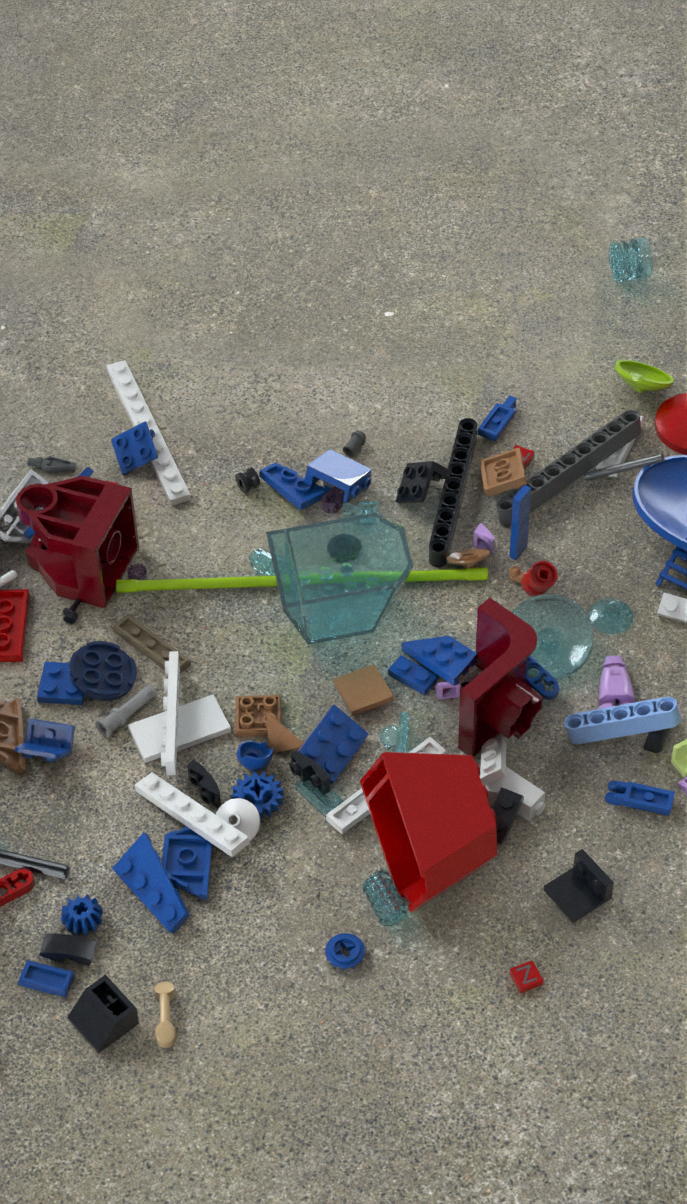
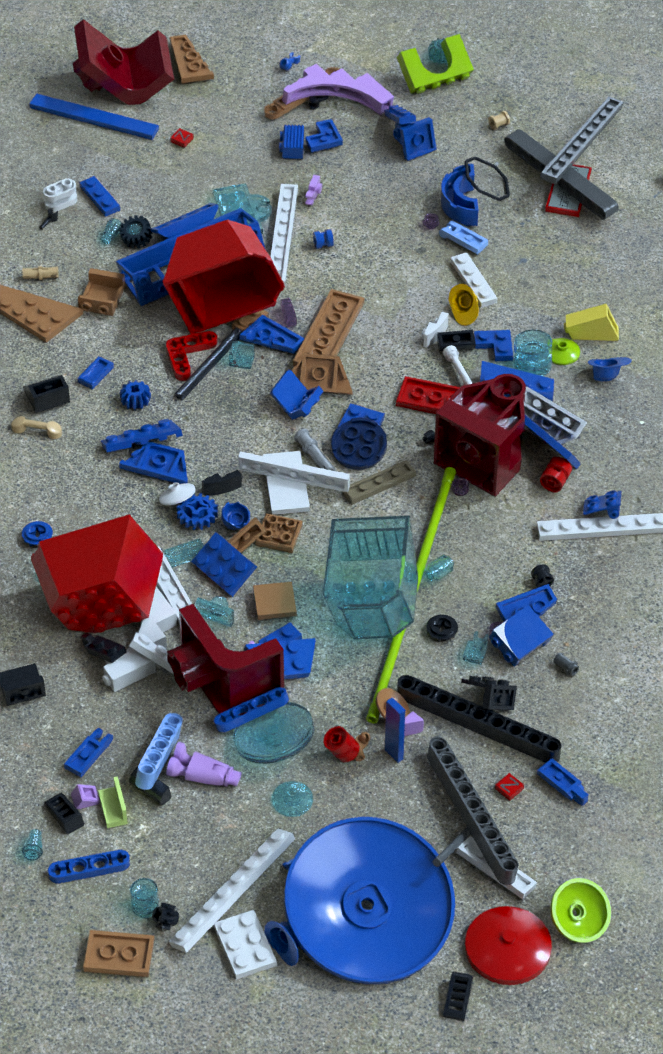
camera: 105 degrees right, 0 degrees up
(52, 464) = (610, 455): dark grey piece -> none
(62, 946) = (111, 383): black slope -> none
(192, 814) = (191, 467): white plate -> none
(310, 770) = (194, 544): black slope -> none
(503, 472) = (481, 755): medium nougat plate -> none

